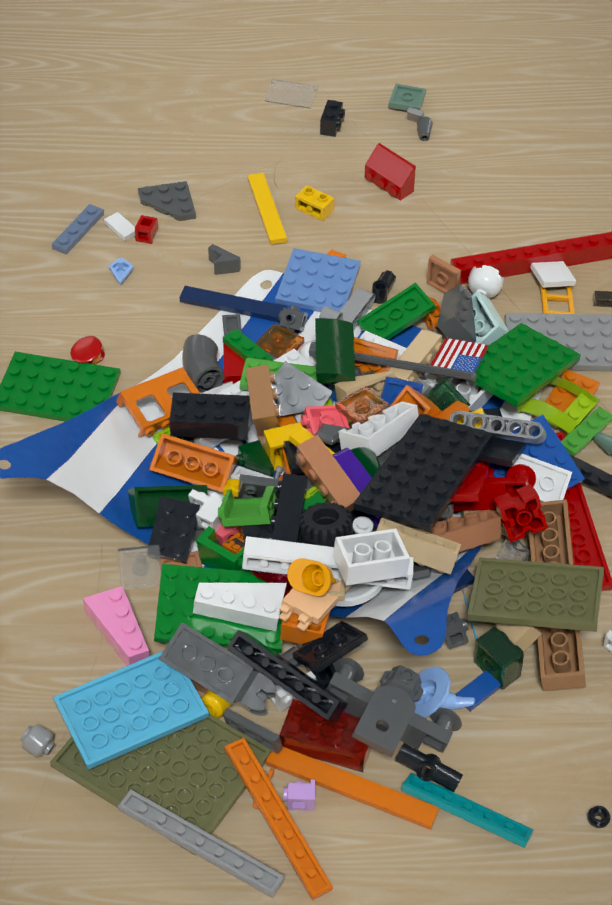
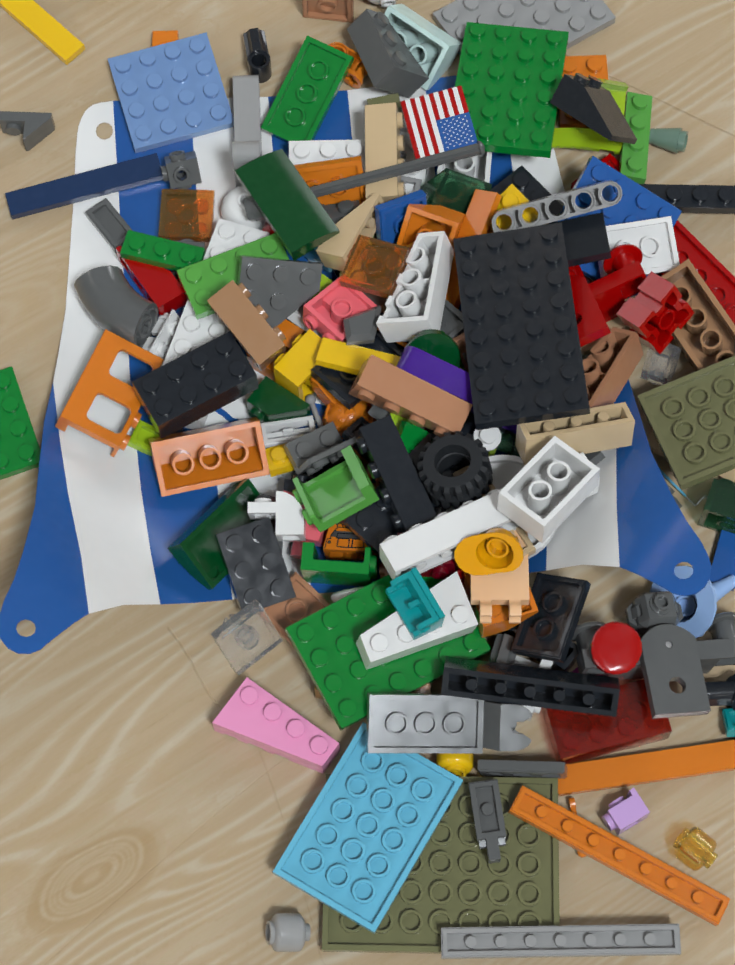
camera: 30 degrees left, 20 degrees up
(208, 744) = (488, 817): none -> dark grey hinge
(244, 581) = (415, 604): none -> teal hinge
(330, 841) = (695, 848): none -> clear yellow head
(355, 680) = (616, 648): none -> red piece
(563, 392) = (592, 106): none -> black slope

